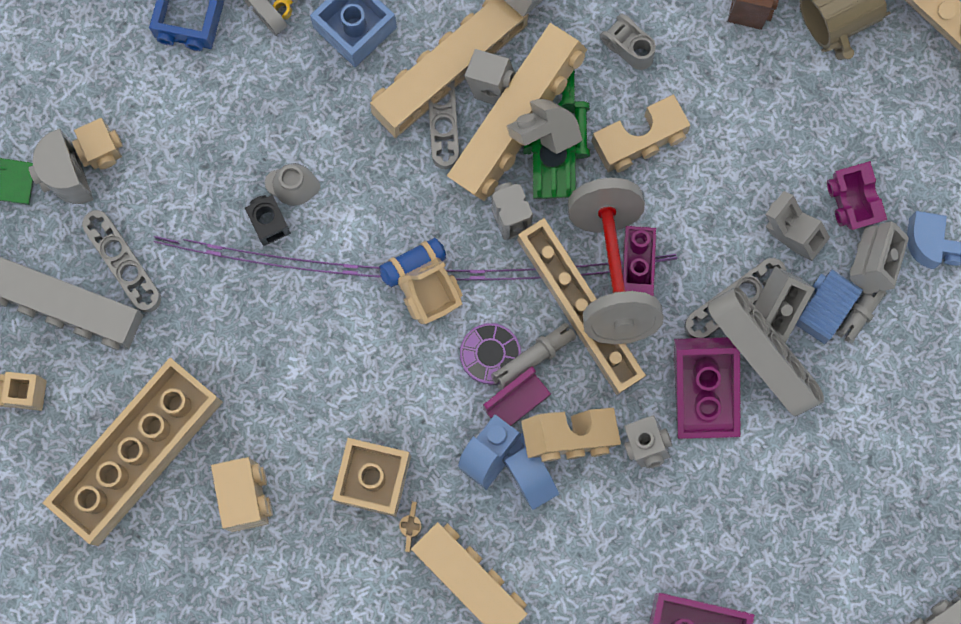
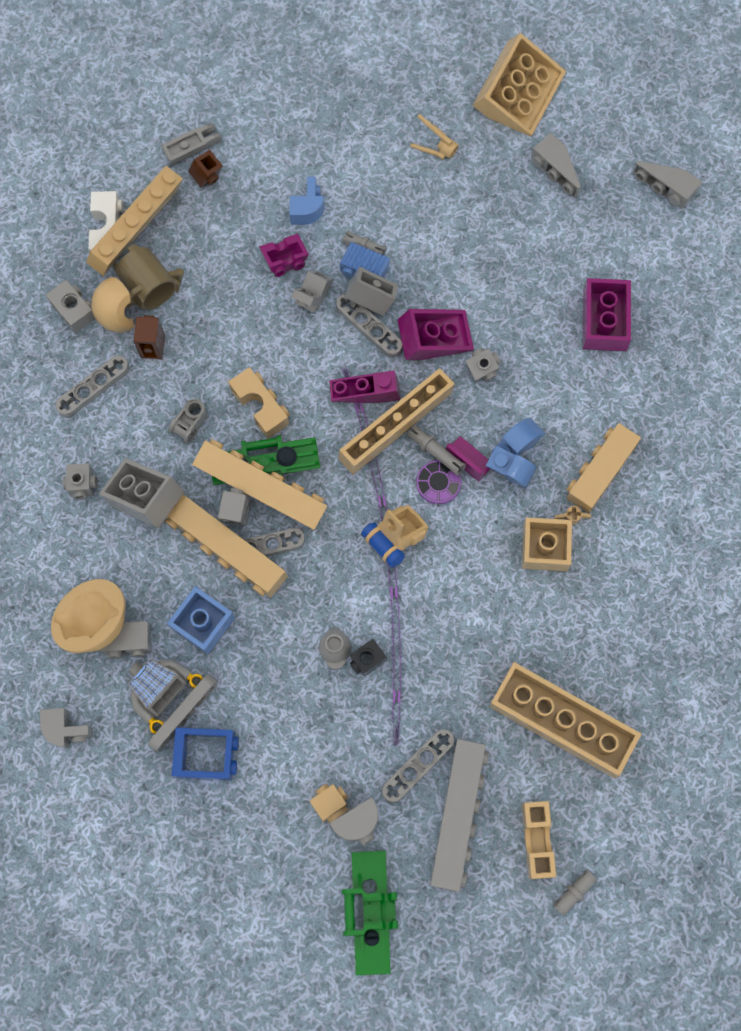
camera: 100 degrees left, 5 degrees down
(241, 494) = (580, 632): tan brick -> none
(511, 210) = (334, 479): light grey brick -> none
(550, 123) = (270, 457): light grey brick -> none
(550, 436) = (493, 412): tan arch -> none
(620, 316) = (321, 413): light grey piece -> none
(765, 351) = (407, 293): light grey beam -> none
(879, 257) = (326, 234): light grey brick -> none

